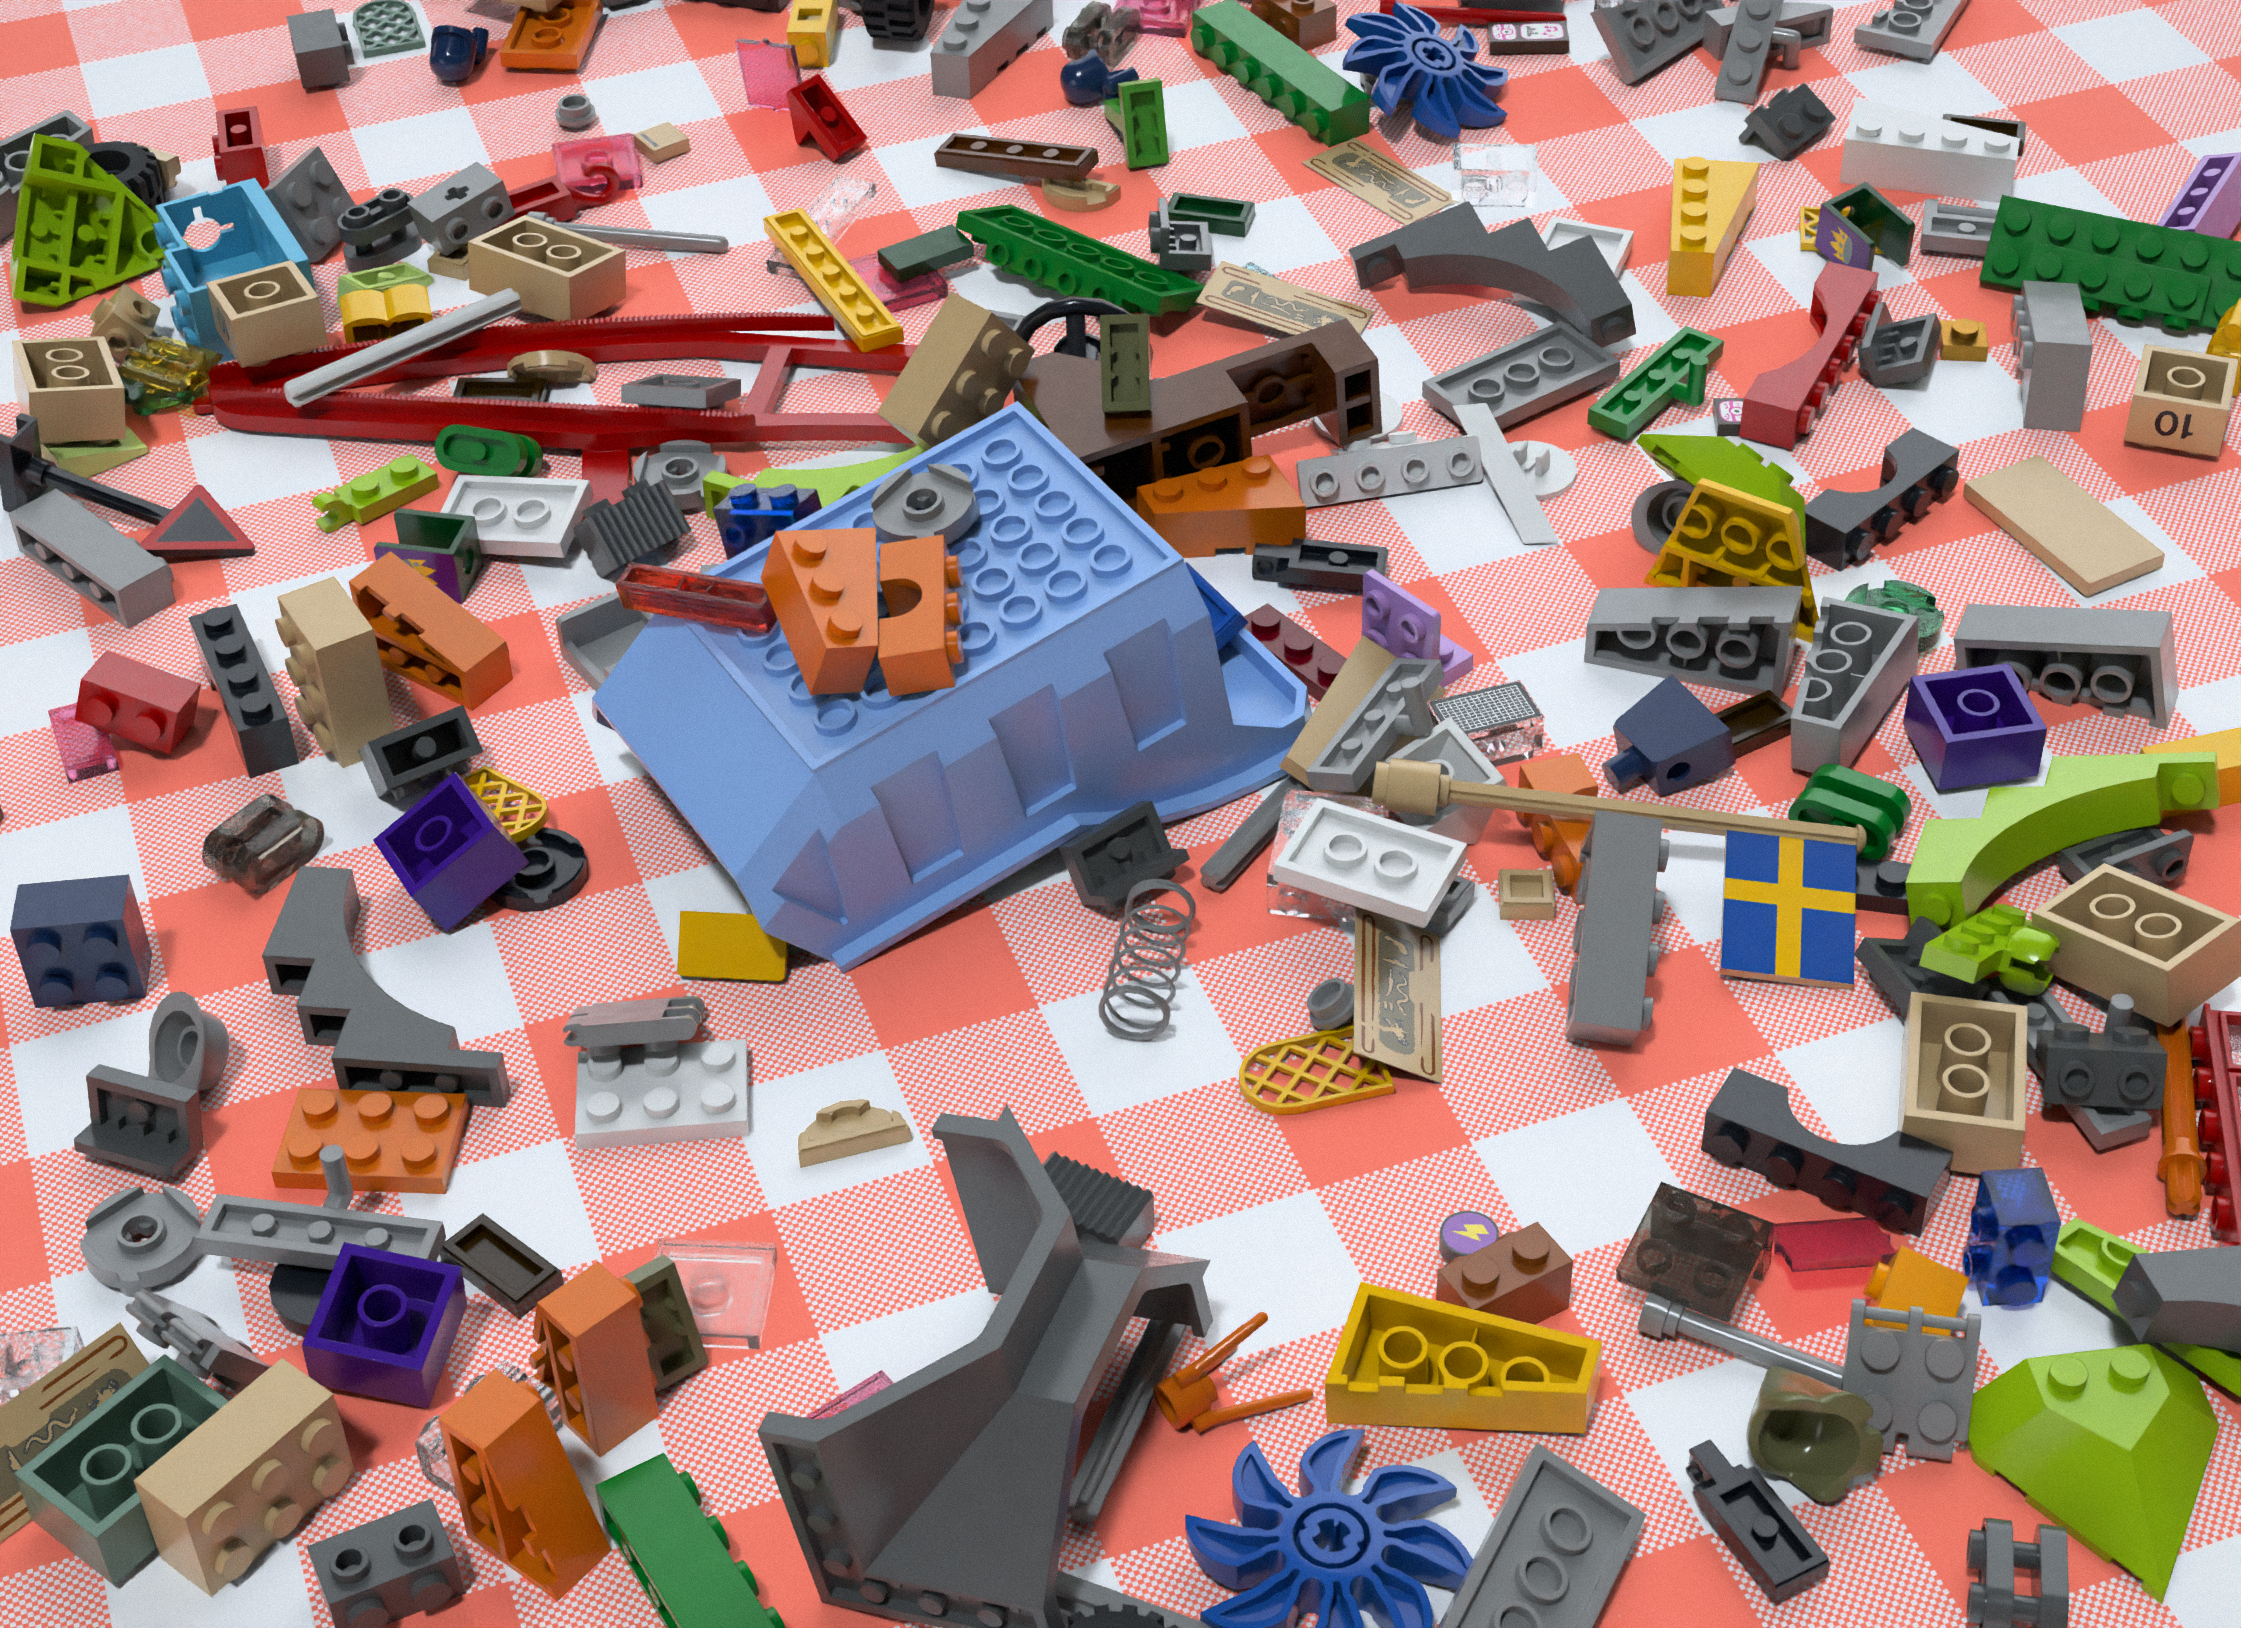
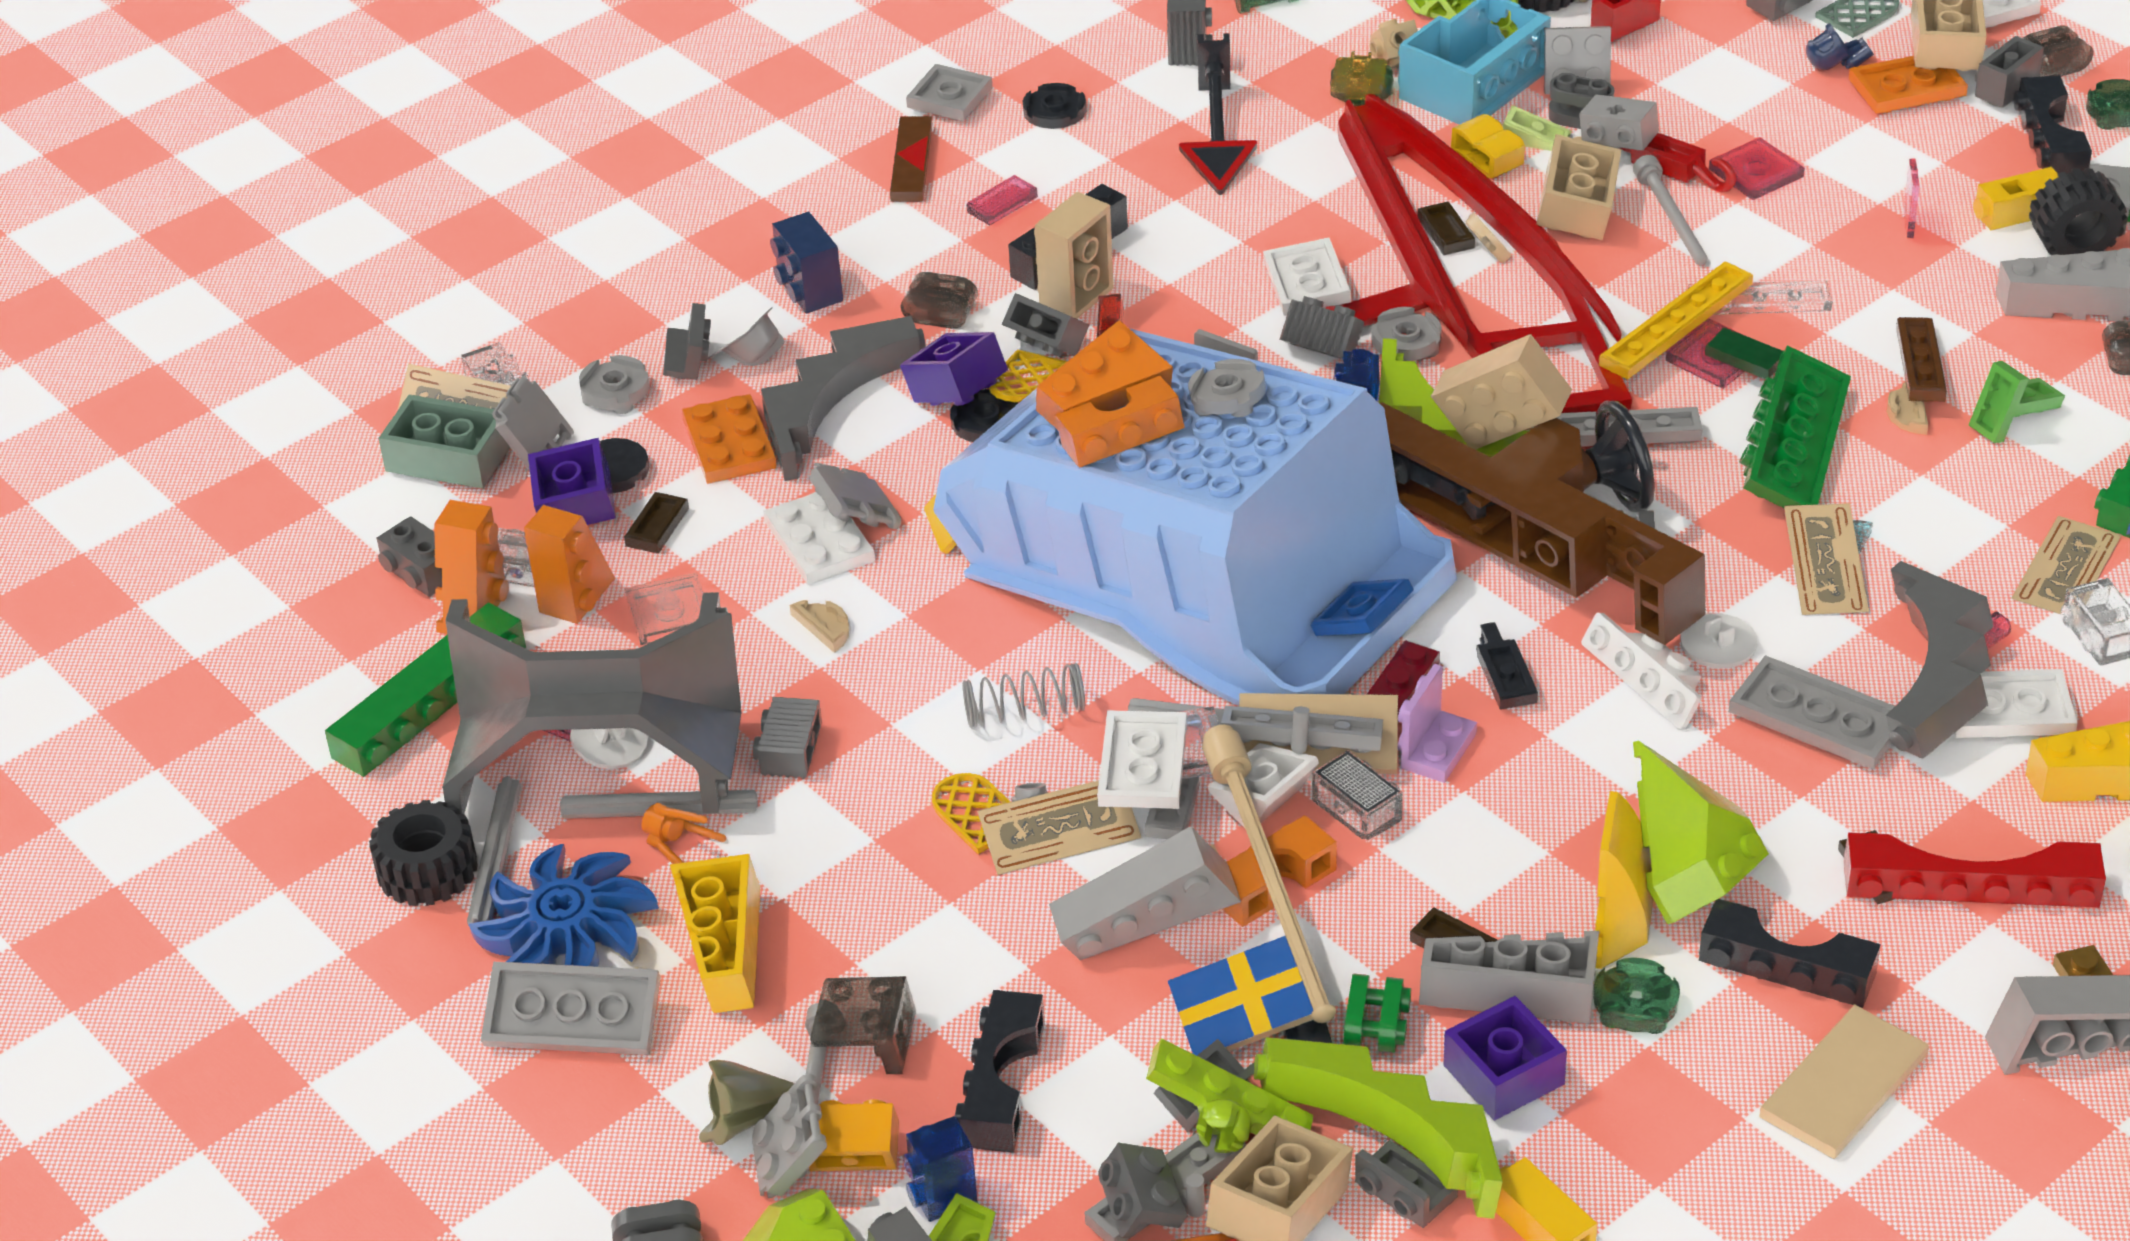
camera: 70 degrees right, 0 degrees up
(70, 389) = (1296, 46): tan brick -> none
(90, 459) = (1270, 88): yellowish green slope -> none
(93, 558) = (1159, 130): light grey brick -> none
(137, 702) = (1022, 196): red brick -> none
(246, 1477) = (436, 467): tan brick -> none
(267, 314) = (1416, 86): tan brick -> none
(312, 1233) = (632, 441): light grey plate -> none
(376, 493) = (1305, 215): lime plate -> none
(402, 347) = (1438, 159): white axle -> none
(429, 634) = (1160, 281): orange wedge -> none
(438, 549) = (1229, 266): dark green piece -> none
(488, 452) = (1360, 241): green brick -> none
(575, 111) = (1812, 132): light grey plate -> none
(661, 142) = (1809, 186): tan tile -> none
(668, 1321) = (613, 585): olive tile -> none
(681, 391) = (1486, 297): light grey plate -> none
(821, 115) = (1882, 245): red slope -> none
(1091, 80) = (2065, 364): dark blue piece -> none
(1120, 855) = (1116, 655): dark grey bracket -> none
(1125, 363) = (1549, 456): olive tile -> none
(1179, 244) = (1860, 471): dark grey bracket -> none
(1222, 214) = (1932, 485): dark green tile -> none
(1224, 508) = (1527, 595): orange wedge -> none
(1466, 1233) = (852, 919): medium lavender tile -> none
(1506, 474) = (1688, 728): white sticker -> none
(1515, 1277) = (802, 937): dark orange brick -> none
(1545, 466) = (1712, 752): white piece -> none
(1668, 741) = (1394, 892): dark blue torso -> none
(1670, 373) = (1870, 790): green plate -> none
(1698, 634) = (1526, 874): light grey wedge -> none
(1755, 1523) = (661, 1103): black hinge -> none
(1832, 1244) = (916, 1090): clear pink piece -> none
(1898, 349) = (2025, 920): dark grey bracket -> none
(1965, 1079) = (1081, 1117): tan brick -> none
(2079, 655) = (1635, 1108): light grey wedge -> none
(2181, 400) = (2058, 1115): tan brick -> none

